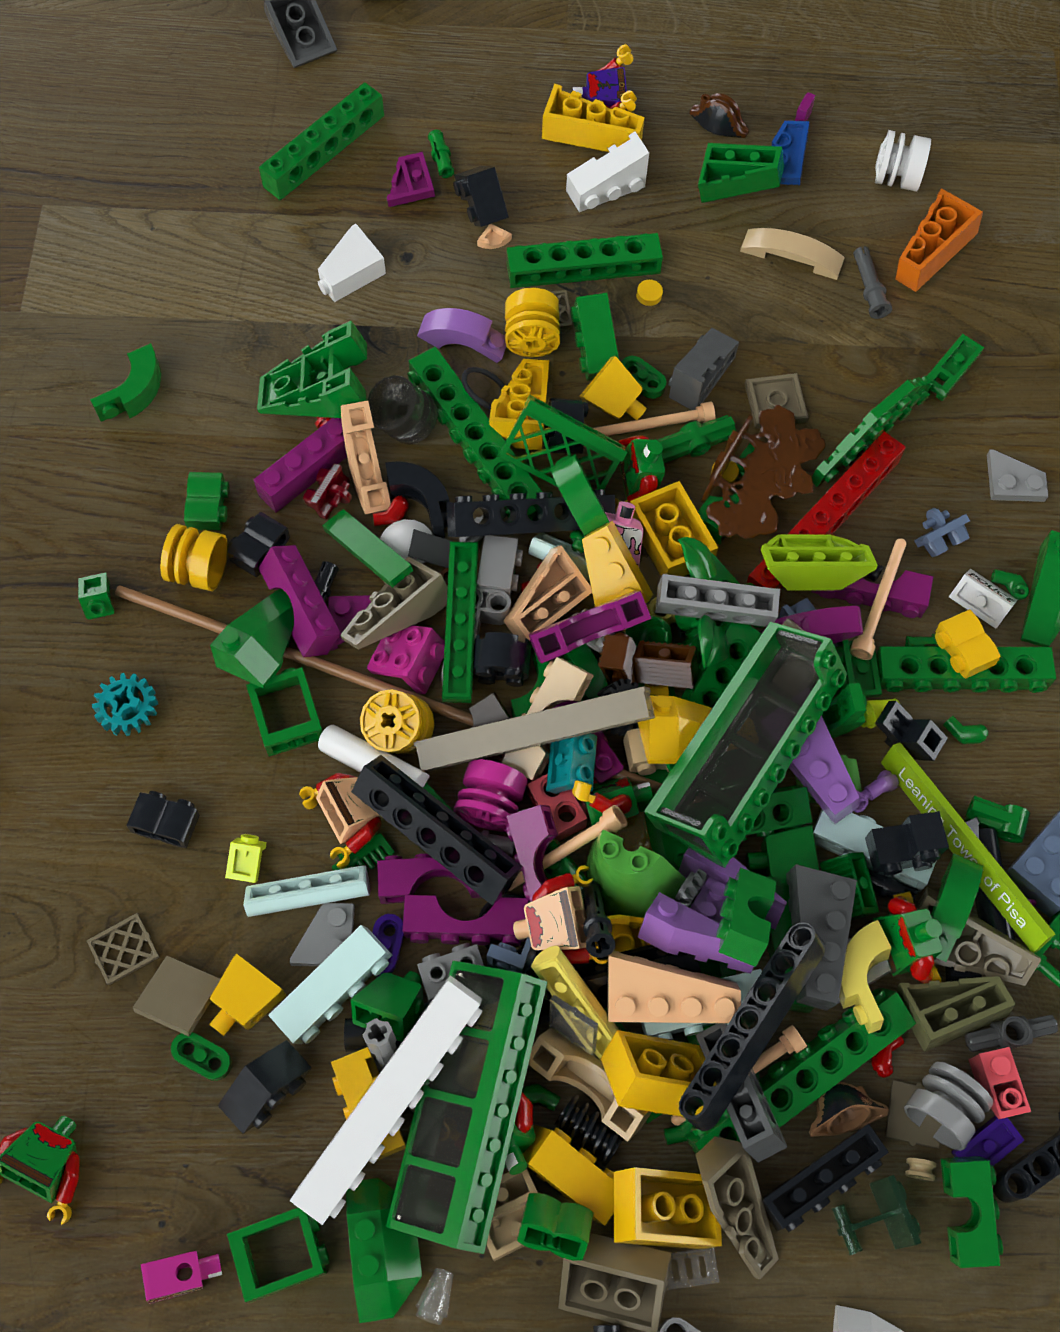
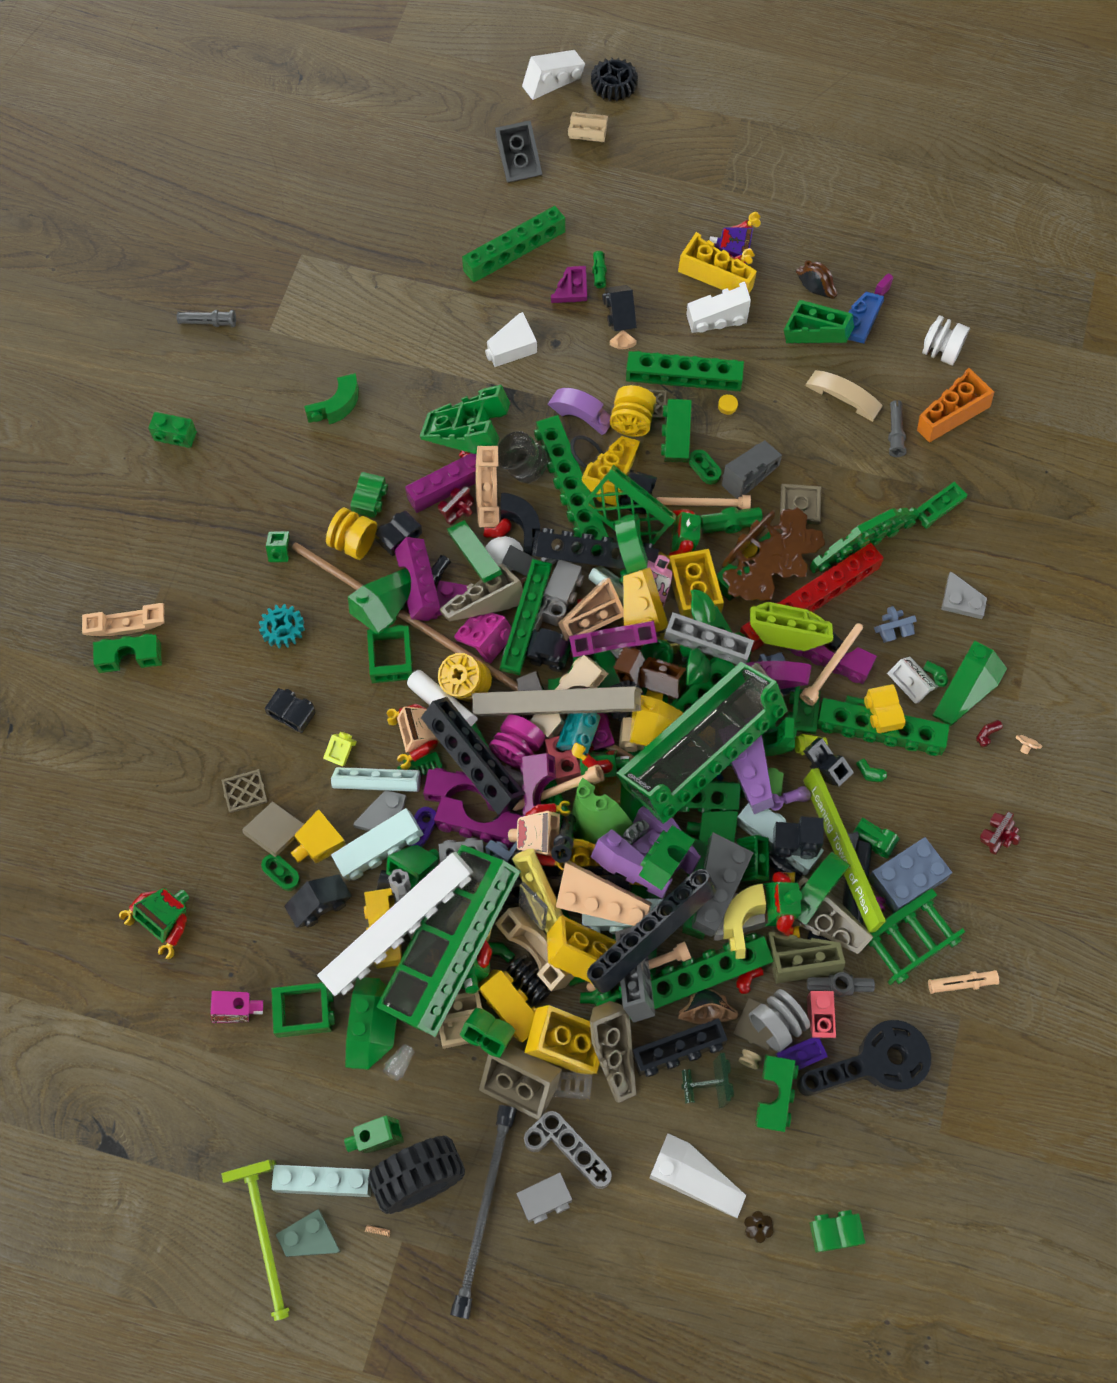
camera: 15 degrees right, 0 degrees up
(615, 391) = (680, 474): yellow torso -> none

